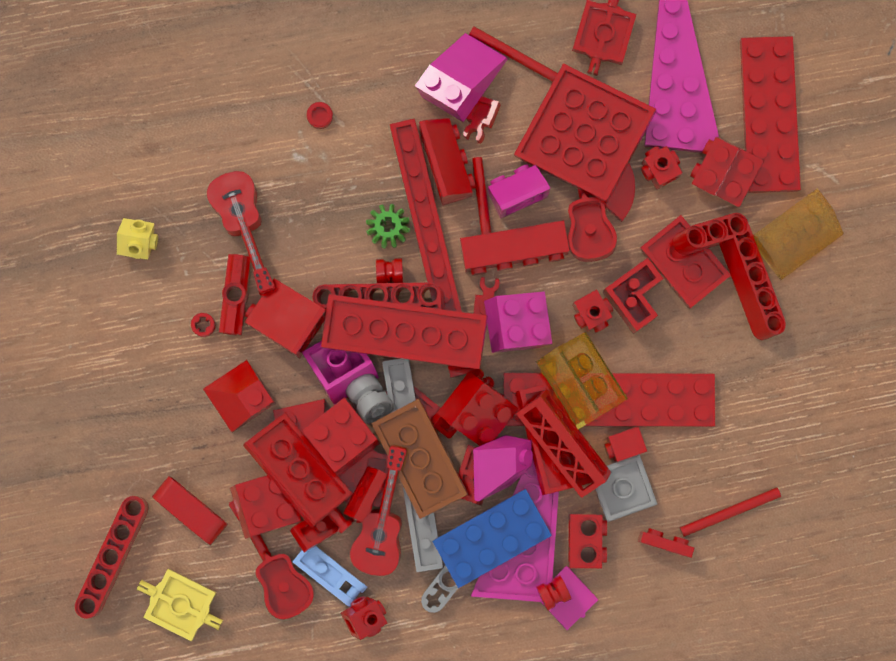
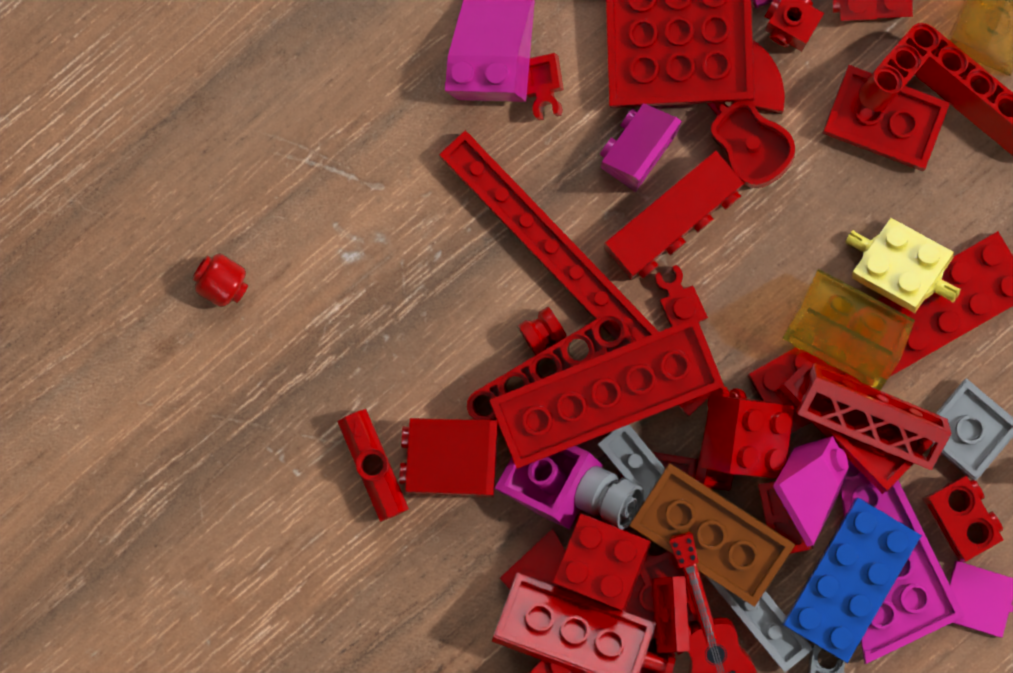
camera: 25 degrees left, 0 degrees up
(136, 238) = (215, 466): light yellow brick -> none
(197, 319) = (343, 521): red bush -> none
(207, 125) = (220, 280): none -> red head
(235, 200) = (306, 352): red piece -> none
(239, 396) = (447, 584): red slope -> none
(319, 115) = (348, 191): red tile -> none
(397, 222) = (515, 267): bright green gear -> none
(446, 160) = (533, 158): red slope -> none
(481, 194) = (598, 177): red bar -> none
(518, 322) = (732, 303): dark pink brick -> none
(553, 592) = (964, 602): red wheel -> none
(594, 302) = (814, 227): red brick -> none
(625, 445) = (943, 376): red brick -> none
(628, 292) = (843, 196): red brick -> none
(640, 360) = (903, 265): none -> light yellow plate

